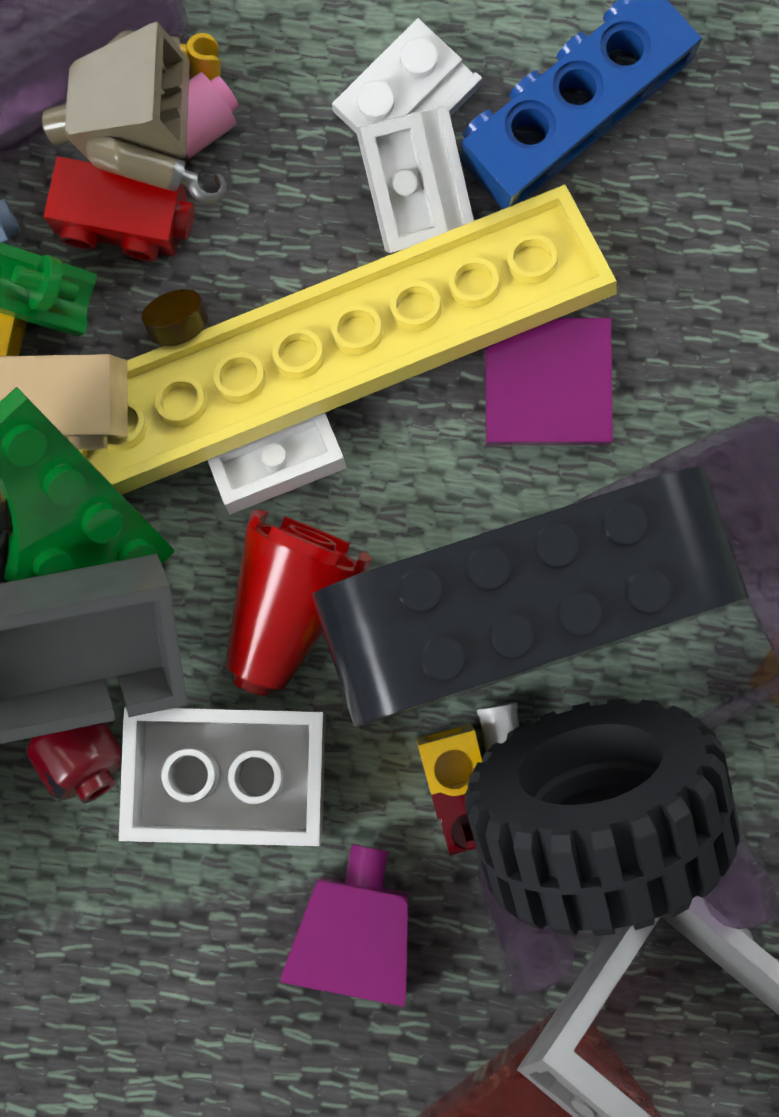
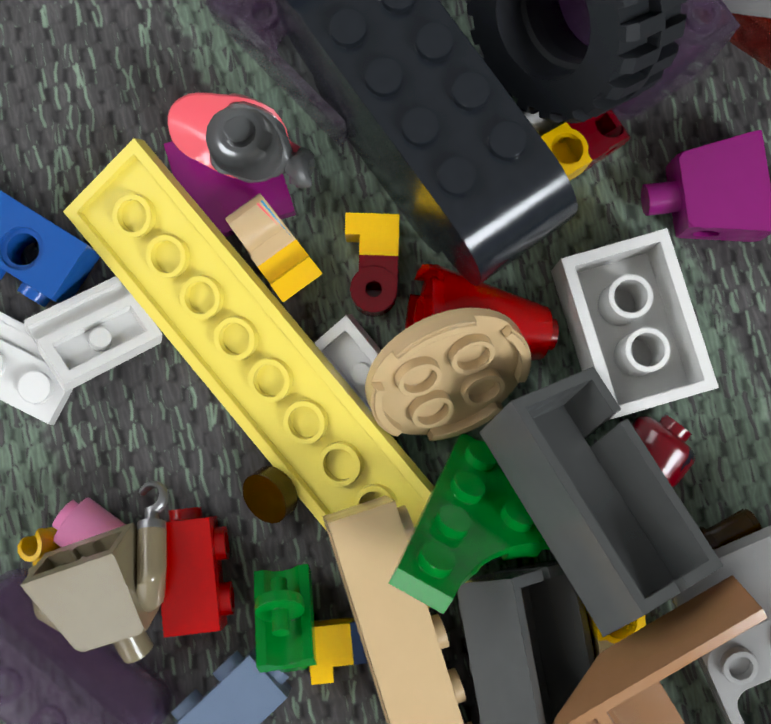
camera: 110 degrees left, 0 degrees up
(233, 542) = (447, 373): none -> tan tile
(394, 515) = (376, 282): none -> leg
(445, 402) = (273, 247): none -> leg
(577, 400) = (238, 138): none -> dark grey hair

